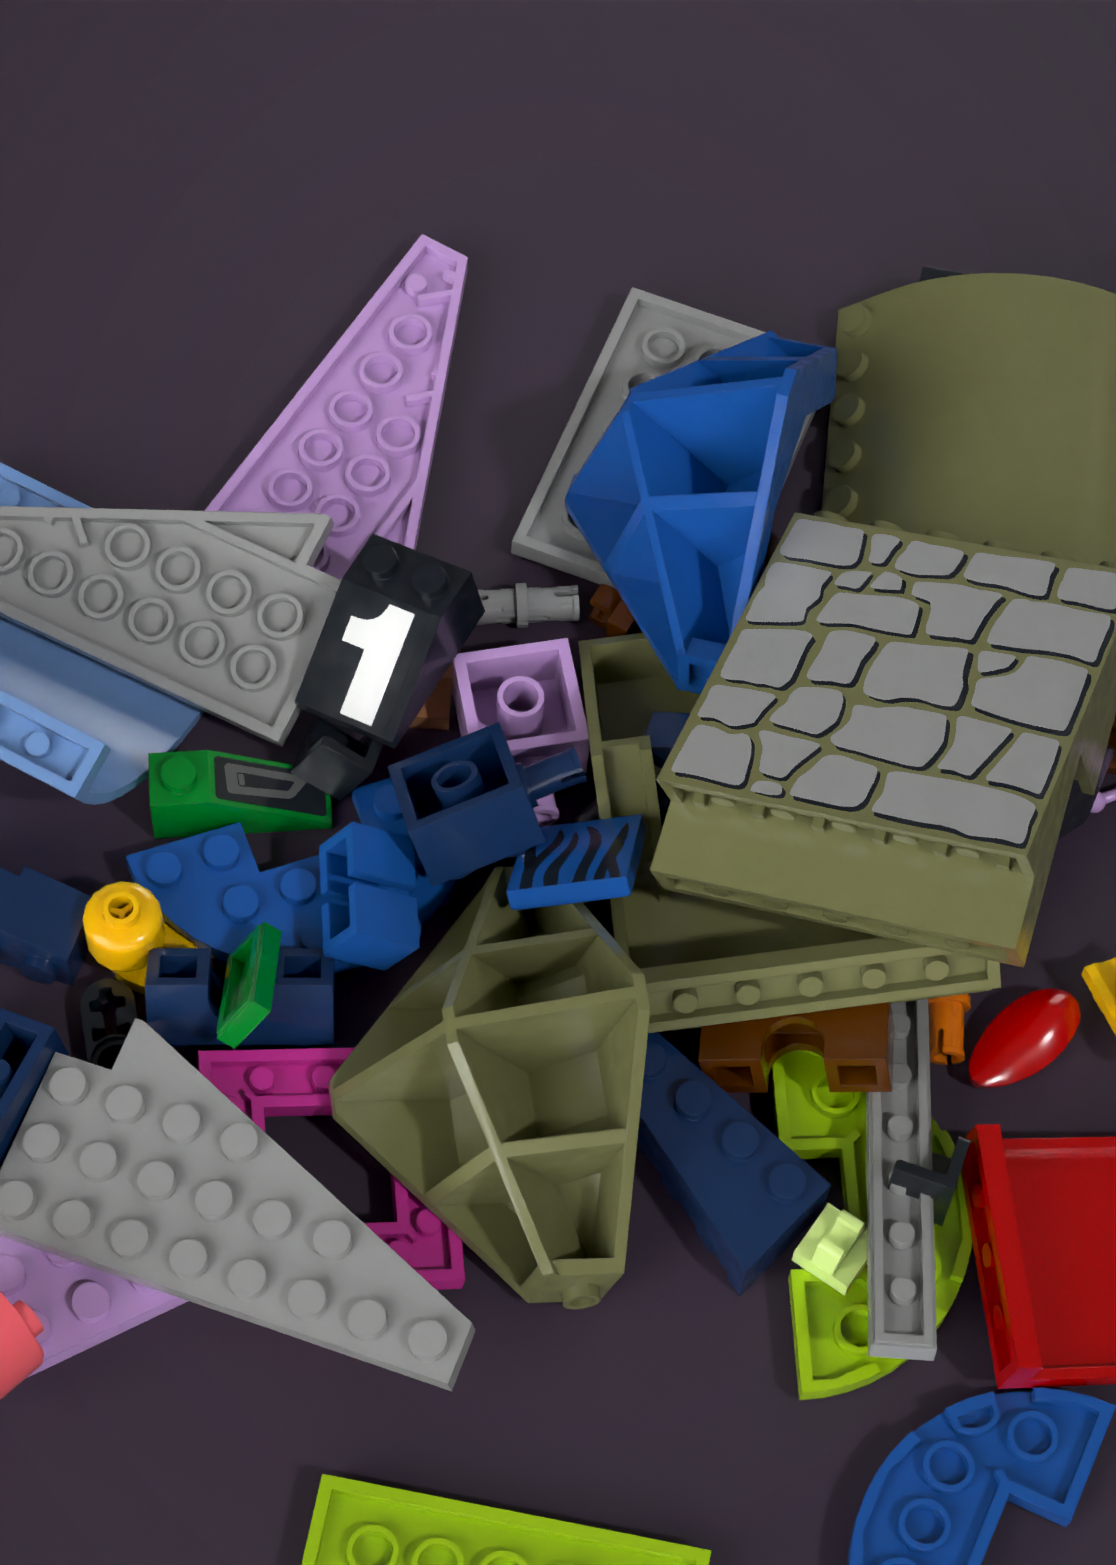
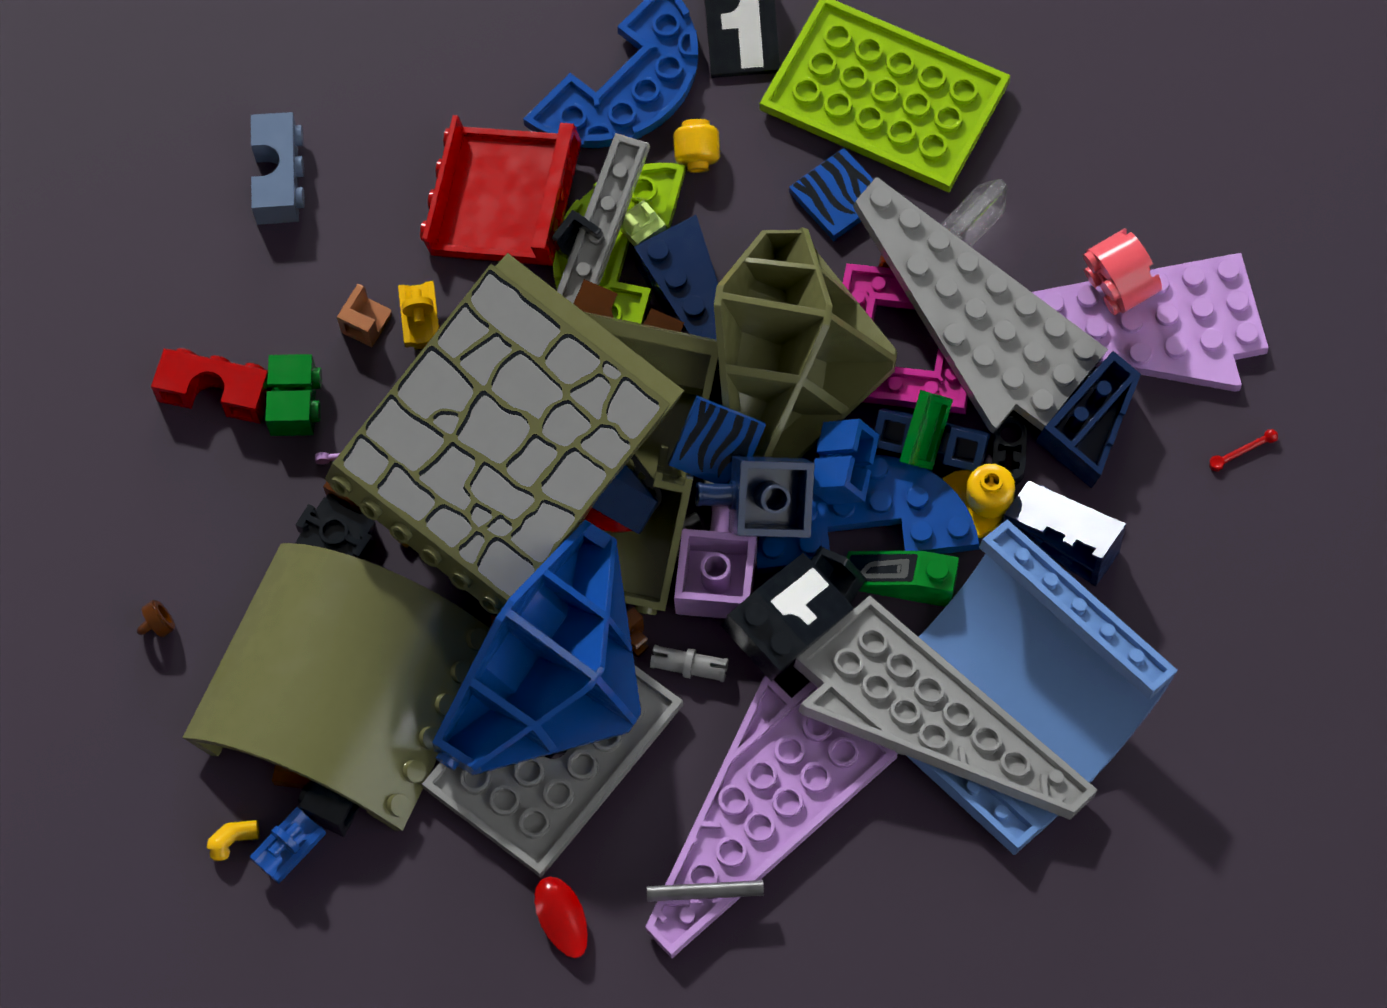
camera: 155 degrees left, 5 degrees up
(270, 1424) = (978, 211): none -> clear tile
(399, 306) = (705, 890): none -> flat silver bar
(517, 1425) = (831, 191): none -> blue tile
(585, 256) = (561, 916): none -> red arm
(795, 1438) = (696, 145): none -> yellow head
(981, 238) = (287, 845): none -> blue hips
(1066, 254) = (228, 834): none -> yellow arm

